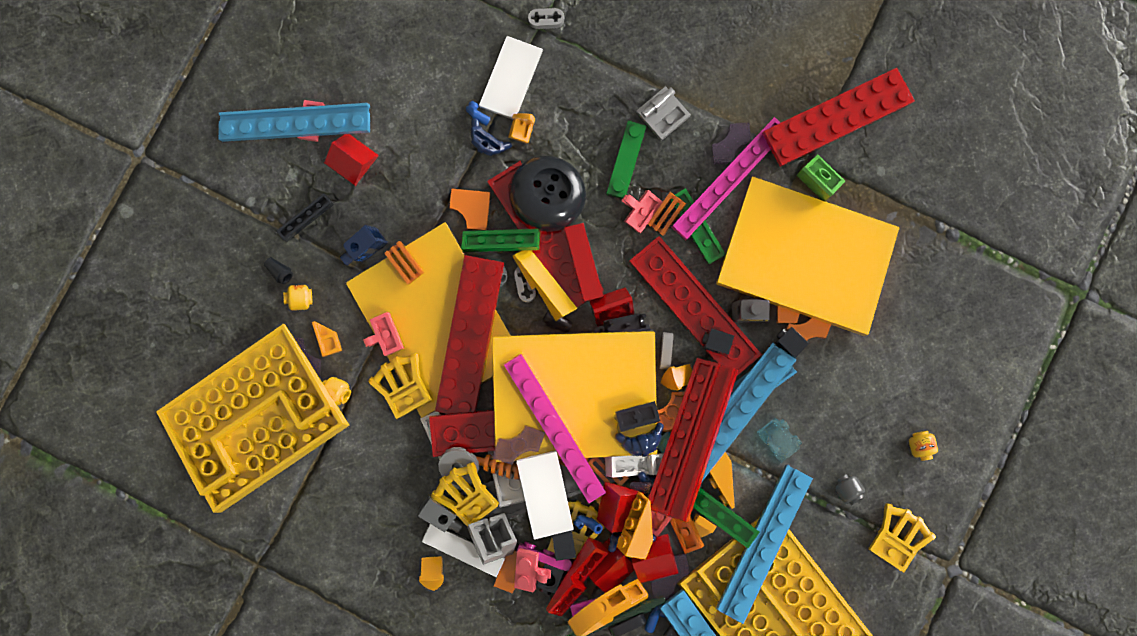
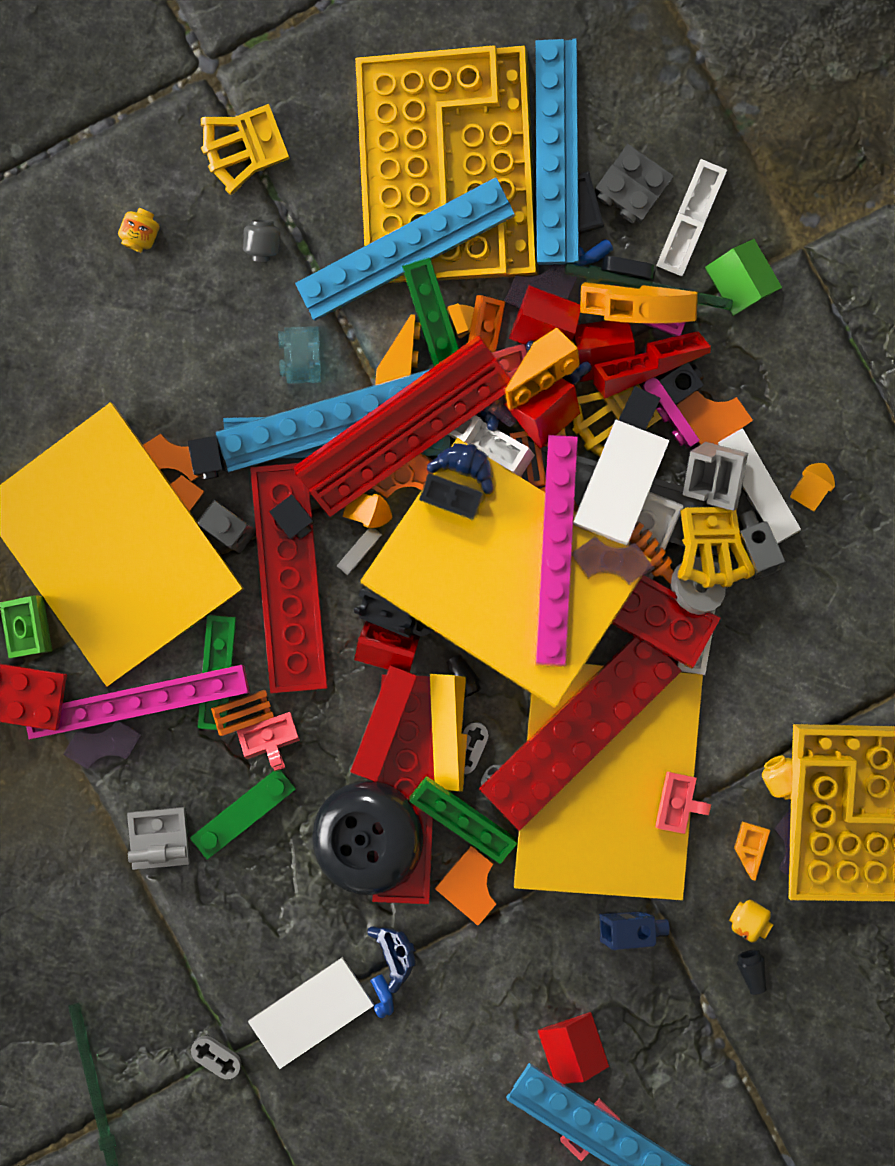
camera: 145 degrees left, 5 degrees up
(305, 217) = (677, 1013): black piece -> none
(394, 249) = (598, 898): orange tile -> none
(407, 397) = (705, 710): yellow plate -> none
(521, 127) = (341, 941): light orange tile -> none
(528, 572) = (701, 408): coral plate -> none
(589, 522) = (590, 412): blue arm -> none

